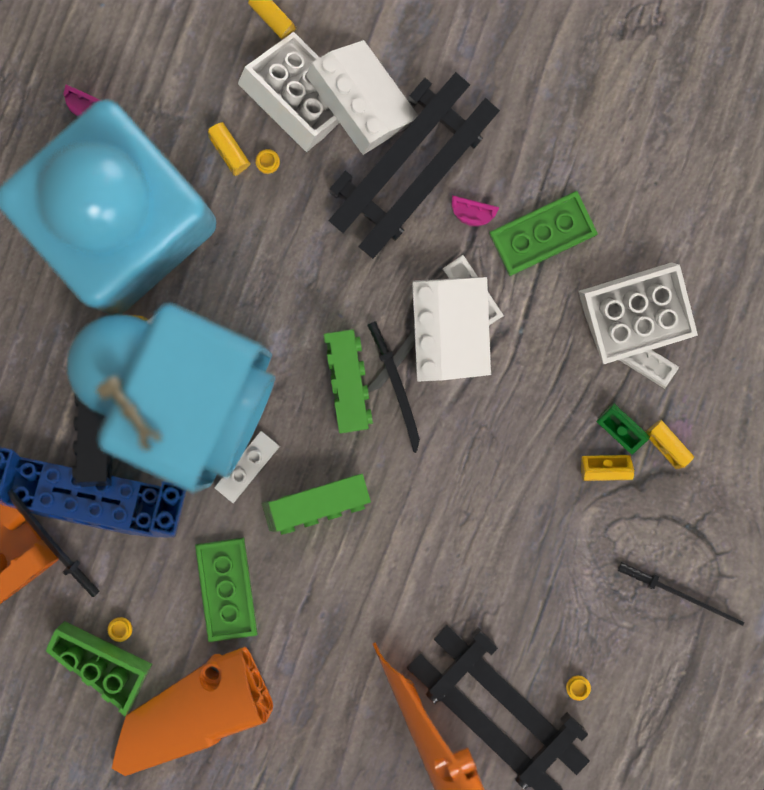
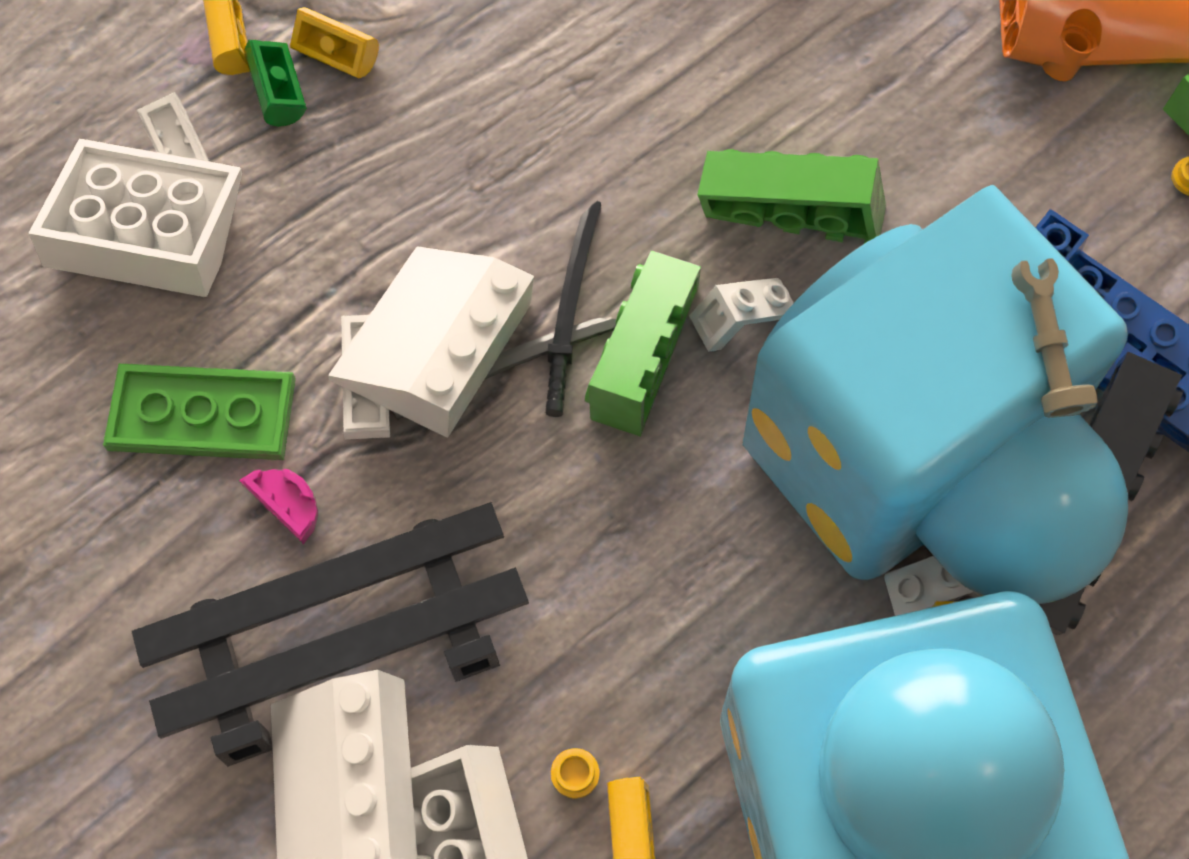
camera: 150 degrees left, 20 degrees down
(226, 589) = (997, 143): bright green tile -> none
(308, 427) = (737, 304): none -> white bracket

